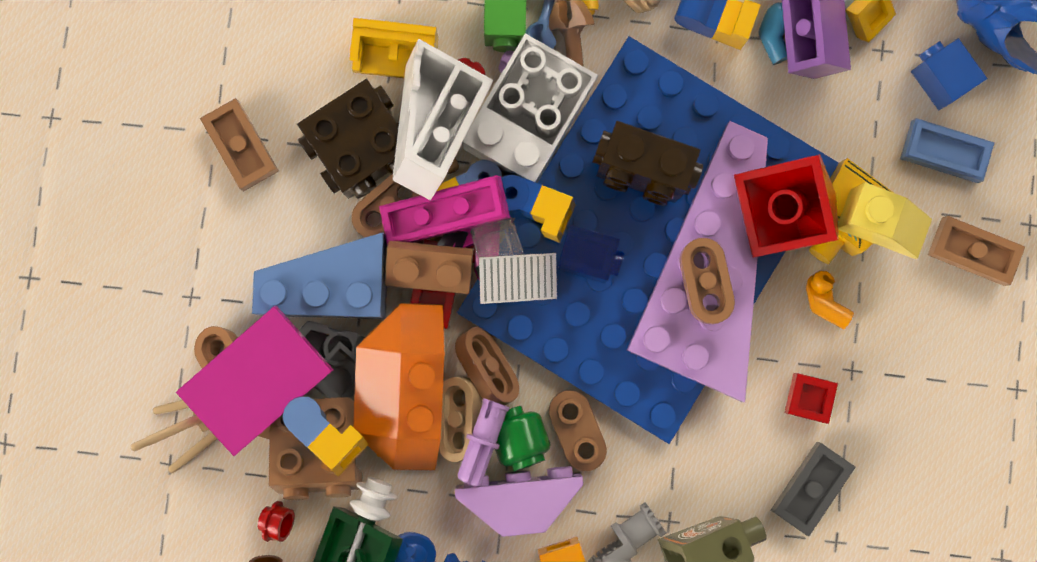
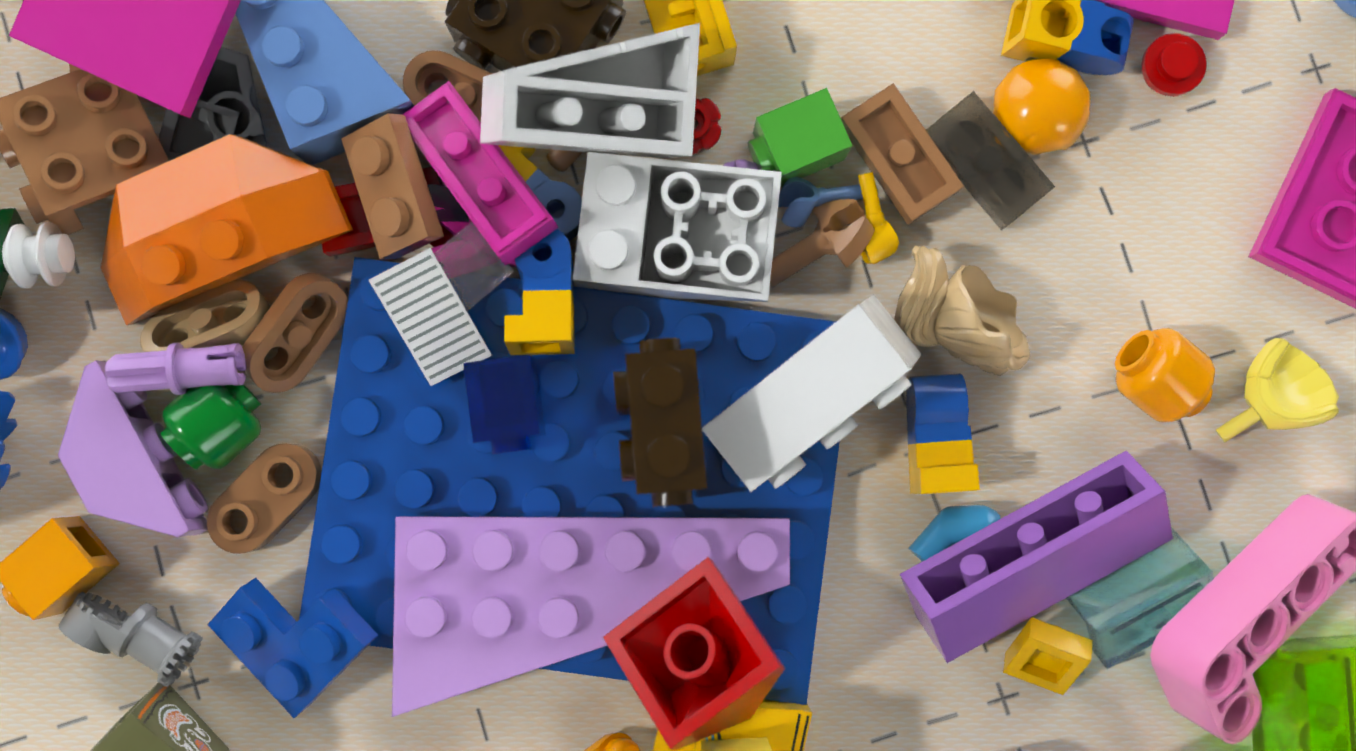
camera: 65 degrees right, 0 degrees up
(311, 428) = (79, 138): leg -> none
(667, 71) = (814, 395): none -> white wedge
(682, 451) = (289, 655): none -> blue plate
(711, 280) = (534, 584): medium nougat plate -> none

